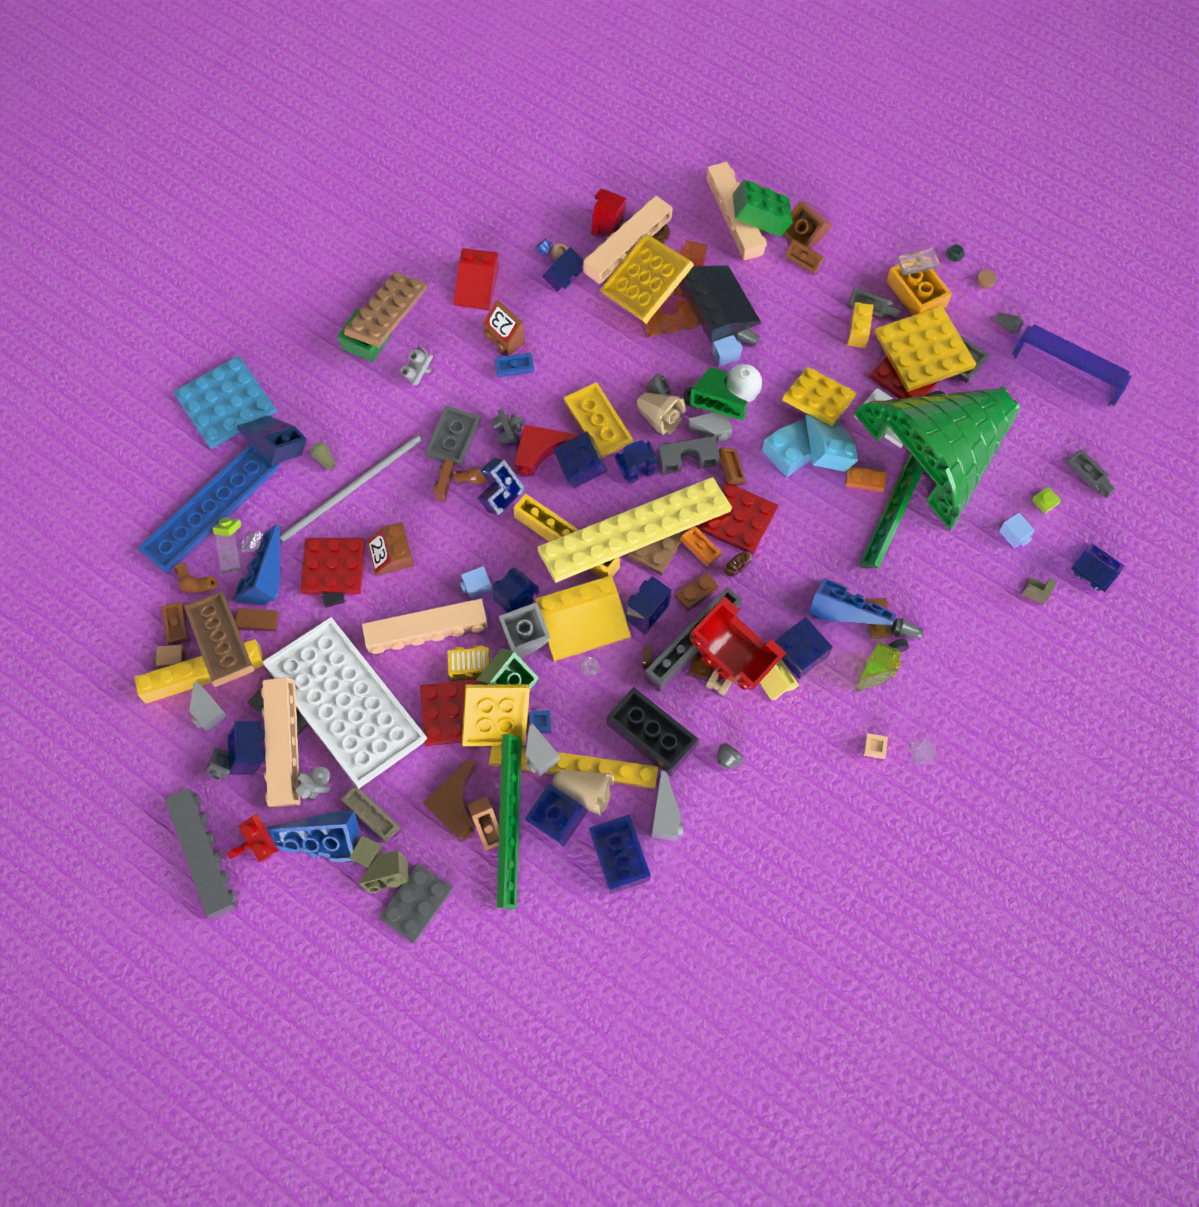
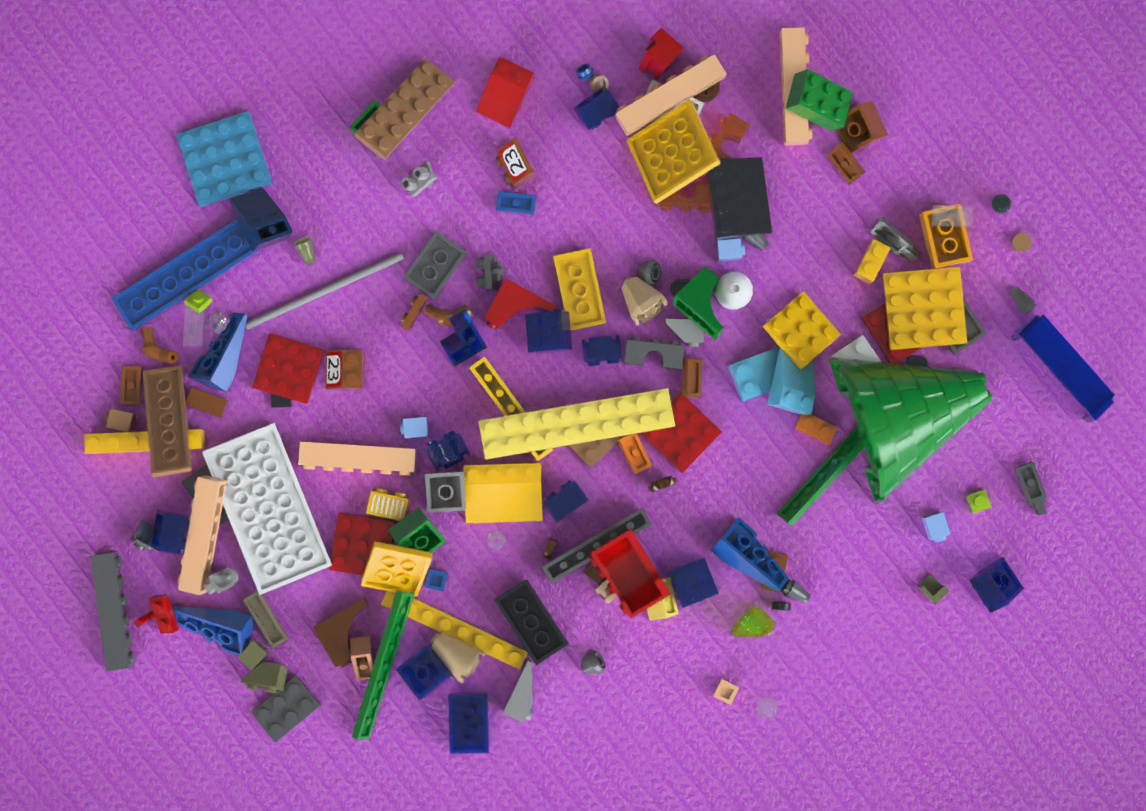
camera: 15 degrees right, 20 degrees up
(204, 709) = (140, 477): light grey slope -> none
(539, 752) = (425, 612): light grey slope -> none
(697, 591) = (617, 495): dark orange plate -> none

